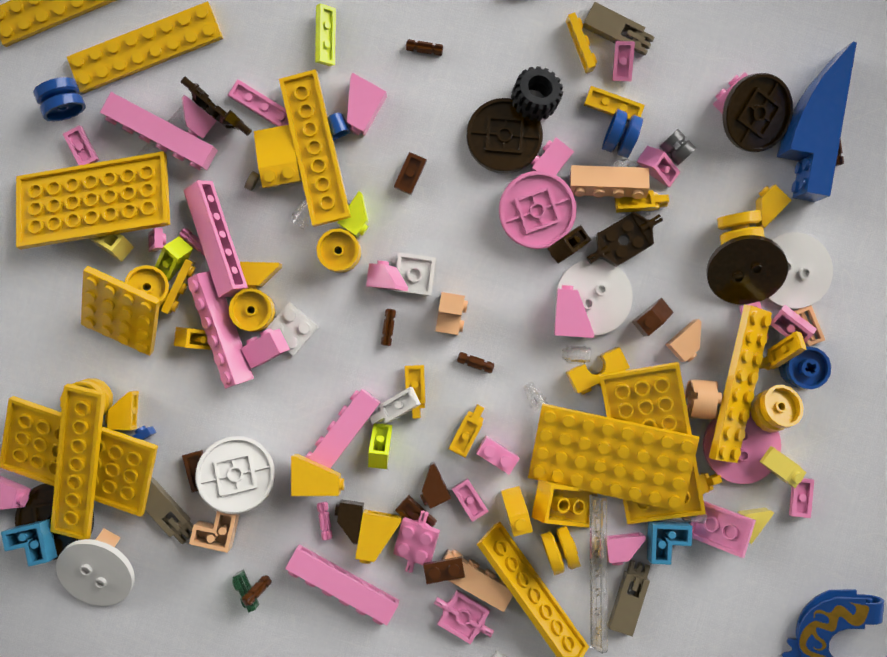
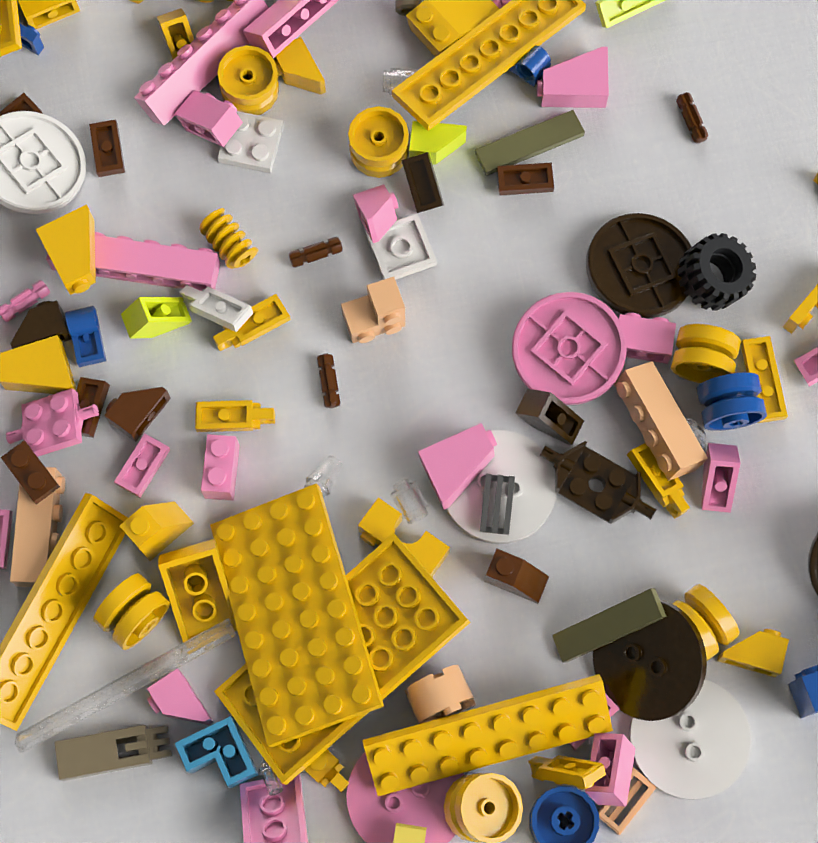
camera: 65 degrees right, 15 degrees down
(248, 421) = (107, 148): none -> reddish brown plate
(353, 377) = (226, 239): none -> yellow piece
(369, 494) = (86, 336): none -> blue plate
(380, 238) = (422, 182): none -> dark brown tile
(386, 156) = (530, 142): none -> olive tile
(585, 131) = (704, 352): none -> yellow wheel
(620, 314) = (499, 479): none -> dark grey tile
(682, 152) = (759, 486): dark grey wheel -> none
(686, 342) = (507, 638): light nougat slope -> none
(716, 281) = (609, 625): none -> olive tile

